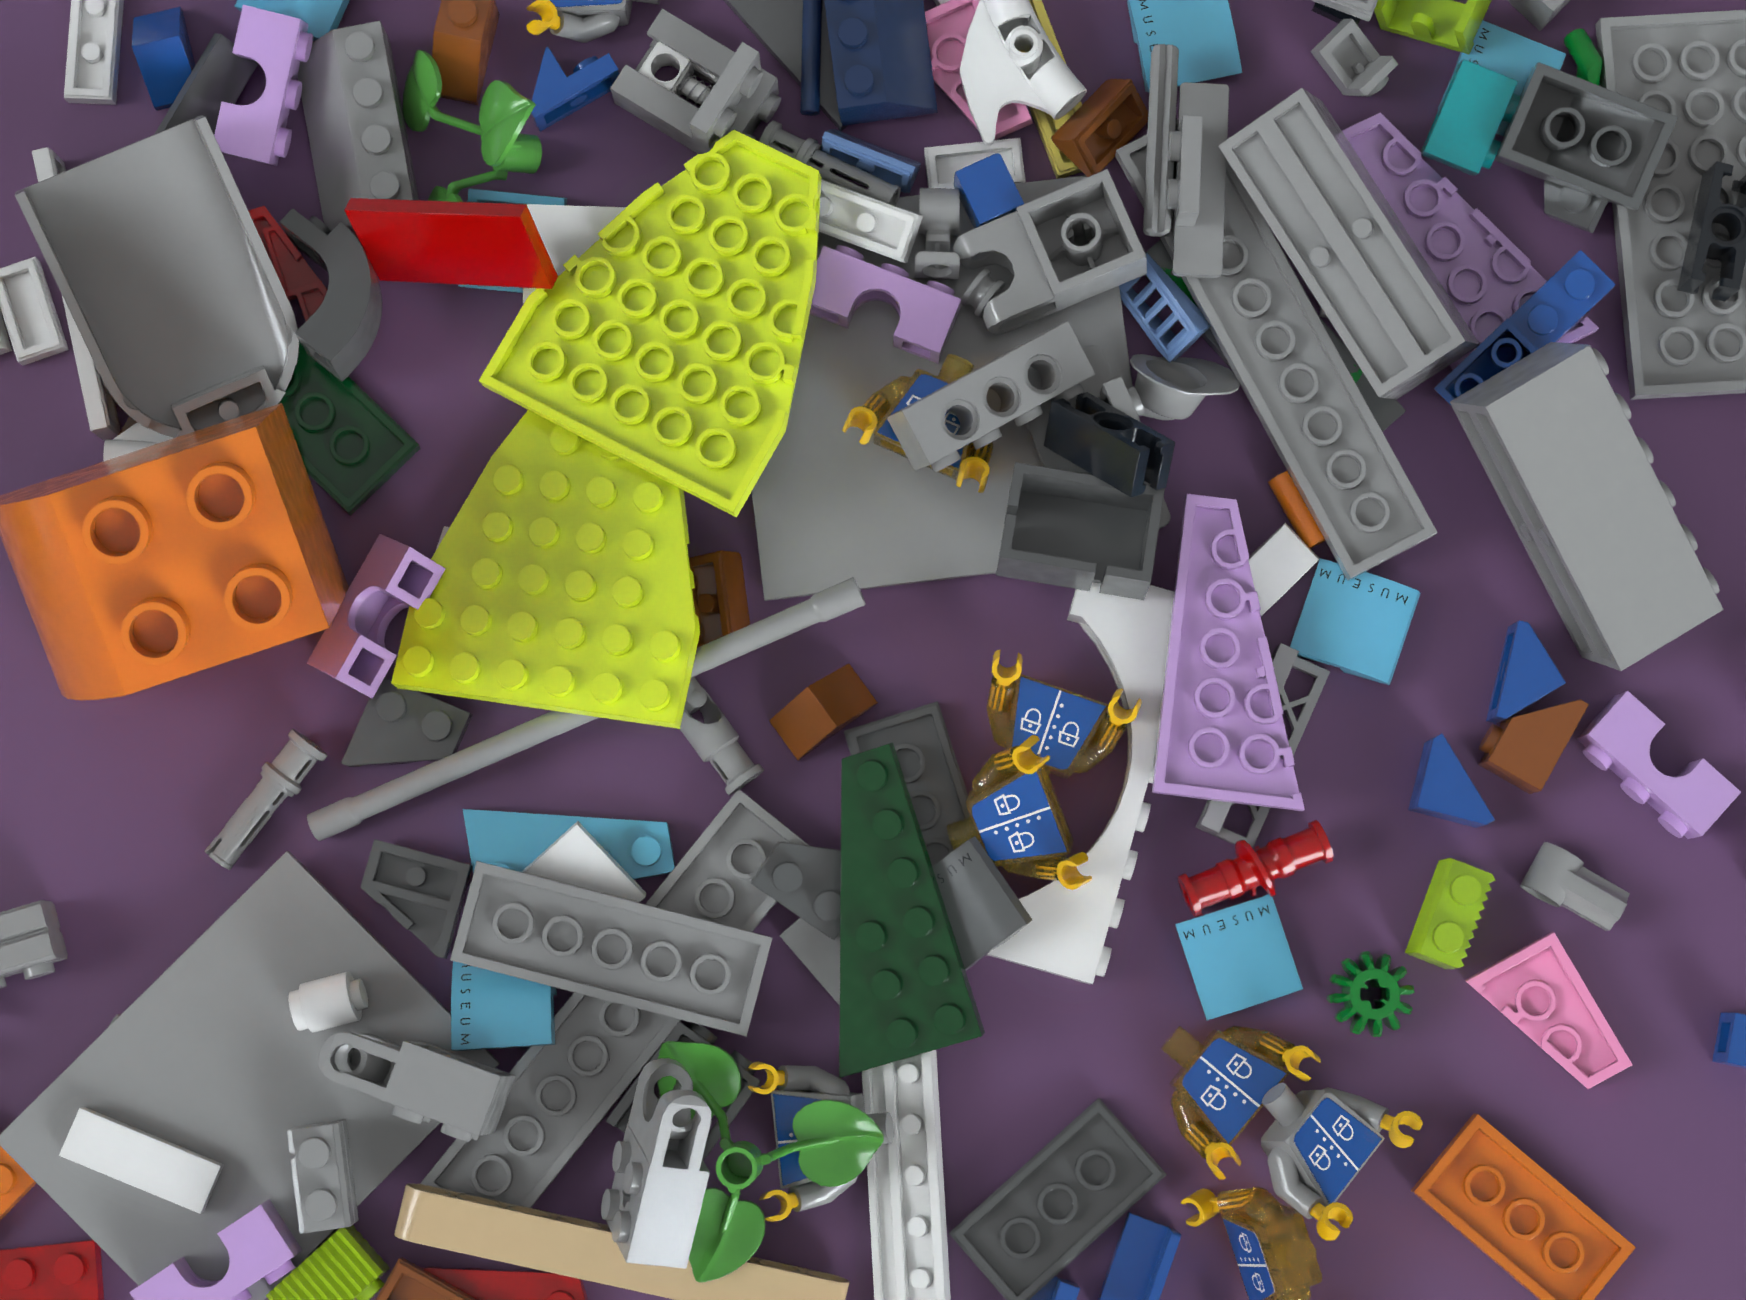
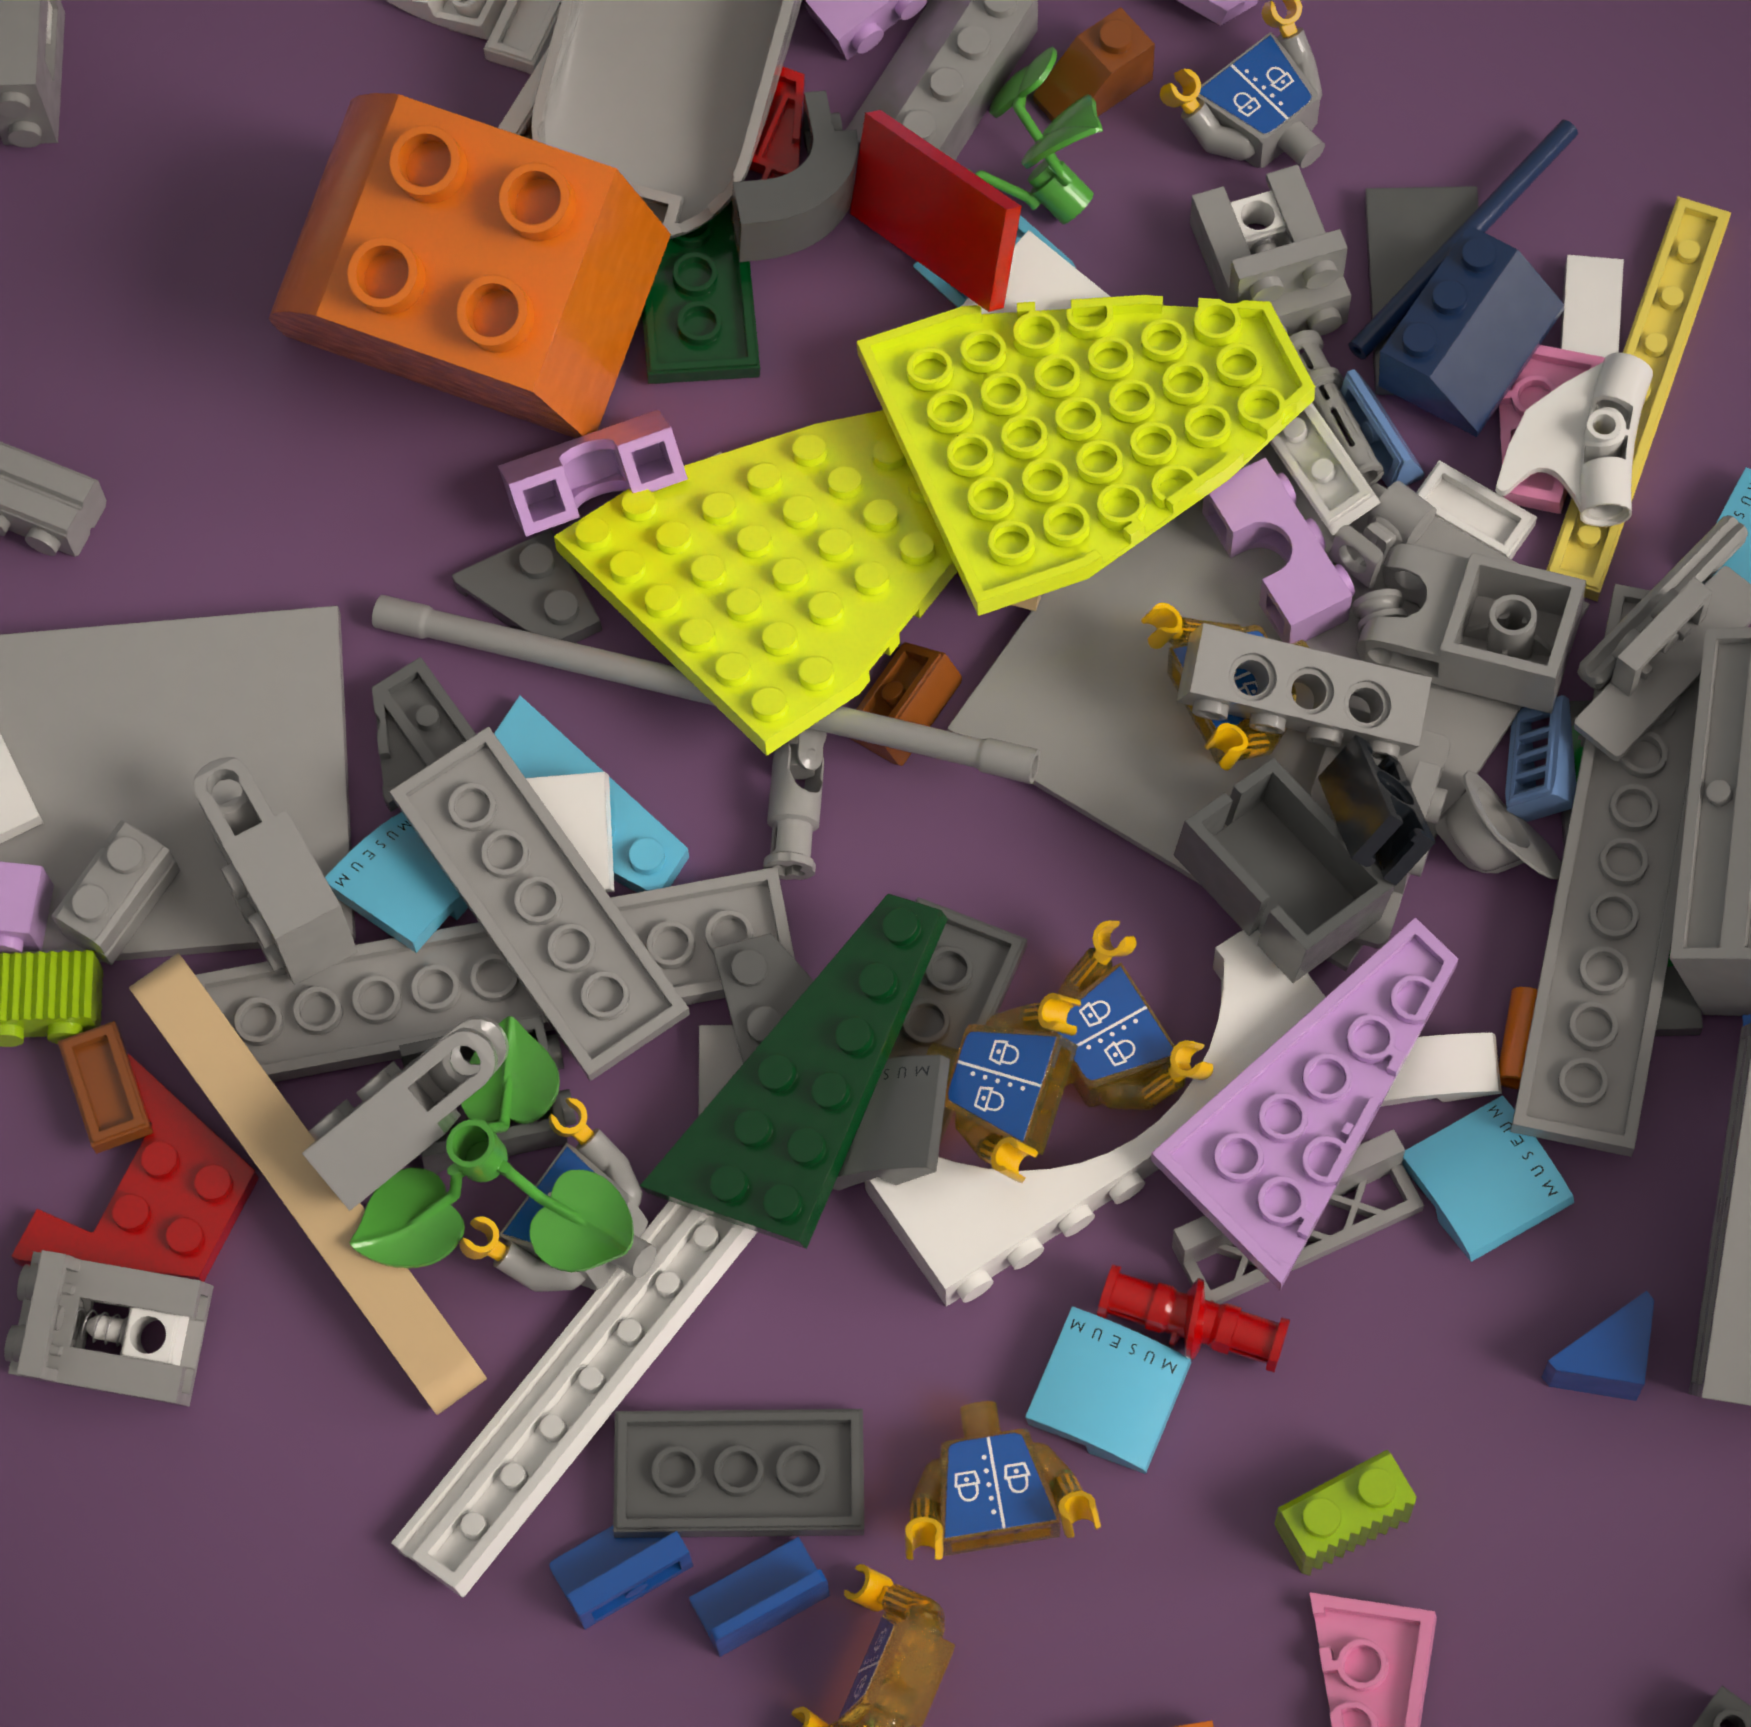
camera: 45 degrees right, 15 degrees down
(278, 781) = (385, 548): light grey pin -> none
(328, 1002) = (265, 751): white brick -> none
(562, 95) = (1145, 177): blue slope -> none
(822, 710) = (915, 863): dark orange slope -> none
(987, 190) = (1462, 522): blue panel -> none
(1102, 125) = (1621, 558): dark orange slope -> none
(1321, 1147) = (1035, 1613): torso -> none
(1363, 1009) = (1230, 1525): green gear -> none
(1445, 789) = (1440, 1396): blue slope -> none
(1530, 744) = (1565, 1421): dark orange slope -> none
(1562, 881) = (1487, 1575): light grey piece -> none
(1622, 740) = (1676, 1599): lavender arch -> none

